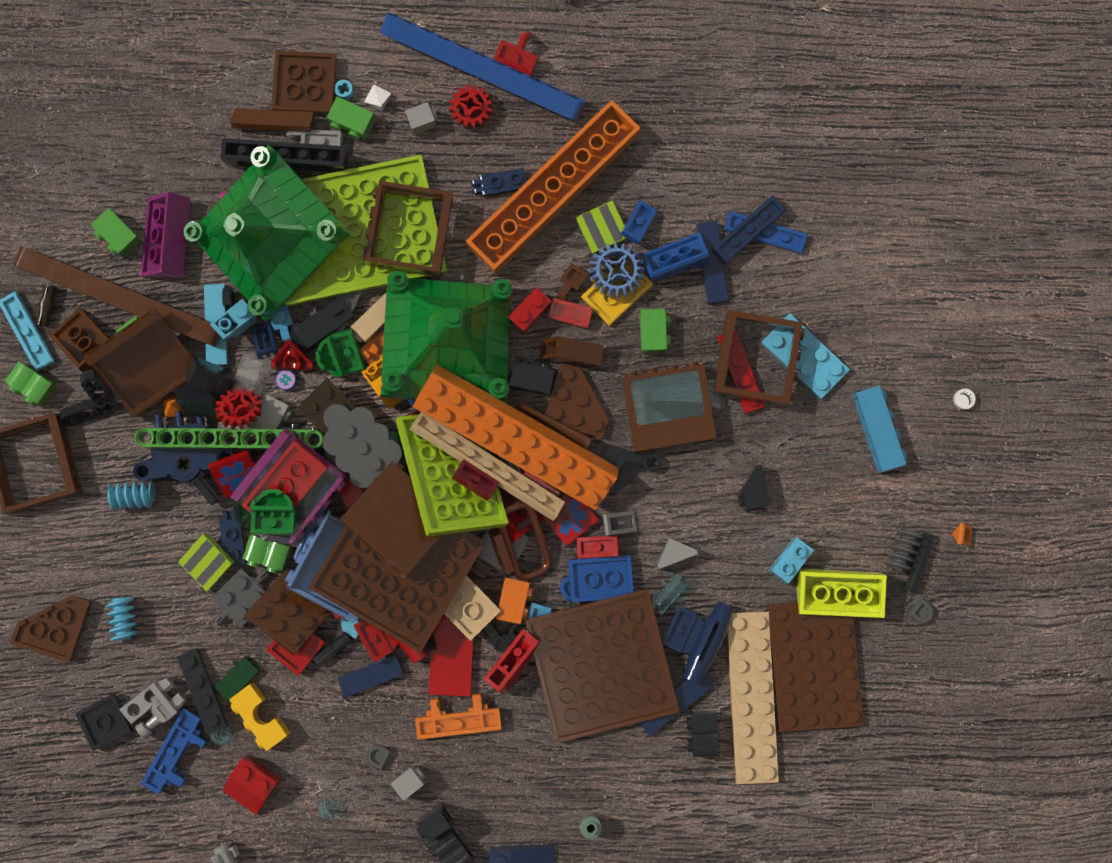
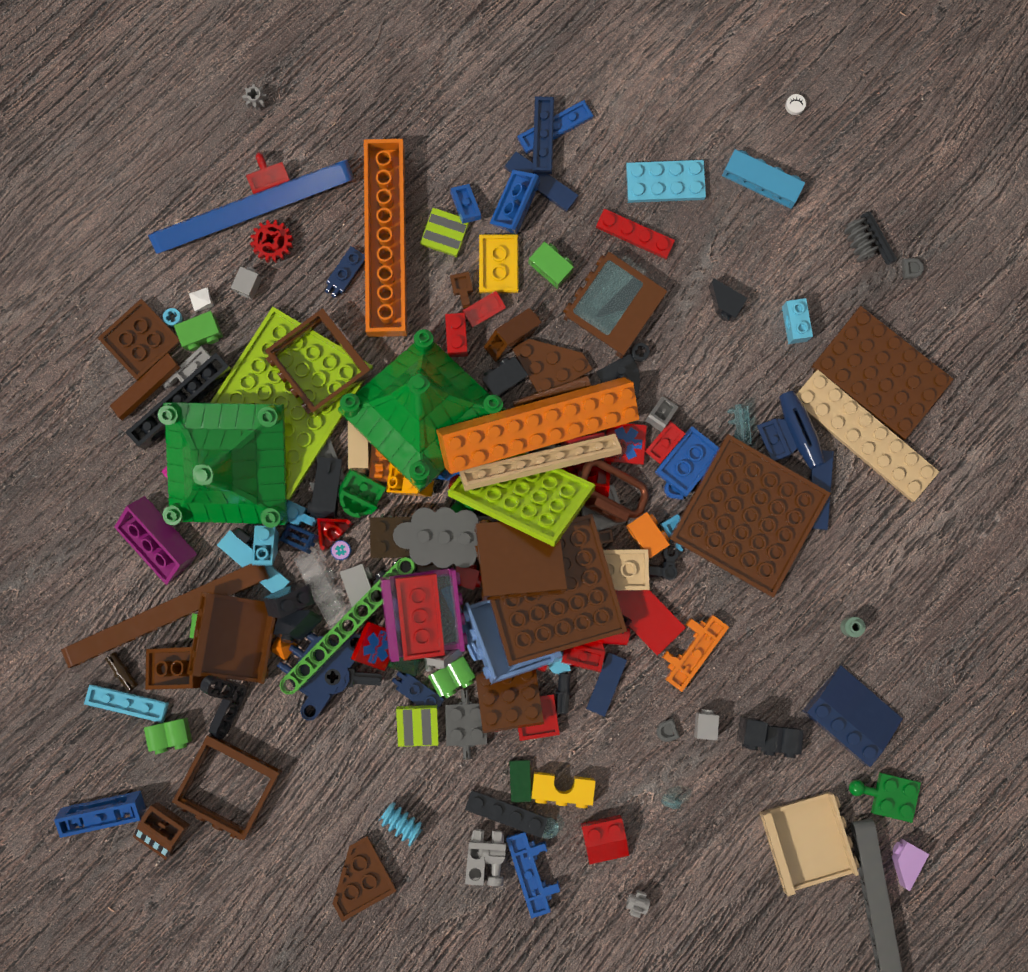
camera: 50 degrees left, 0 degrees up
(103, 722) = (462, 904): black plate -> none
(116, 233) = (117, 573): bright green brick -> none
(132, 496) = (320, 735): medium azure piece -> none
(238, 408) = (332, 599): red gear -> none
(272, 514) = (432, 643): green slope -> none
(475, 480) = (544, 478): dark red plate -> none
(512, 662) = (690, 574): red slope -> none
(609, 265) = (478, 251): medium blue gear -> none
(674, 552) = (717, 395): light grey slope -> none
(703, 734) = (860, 491): black brick -> none
(792, 373) = (613, 229): reddish brown window -> none
(841, 593) = (851, 308): neon yellow slope -> none
(963, 534) = (886, 192): orange slope -> none

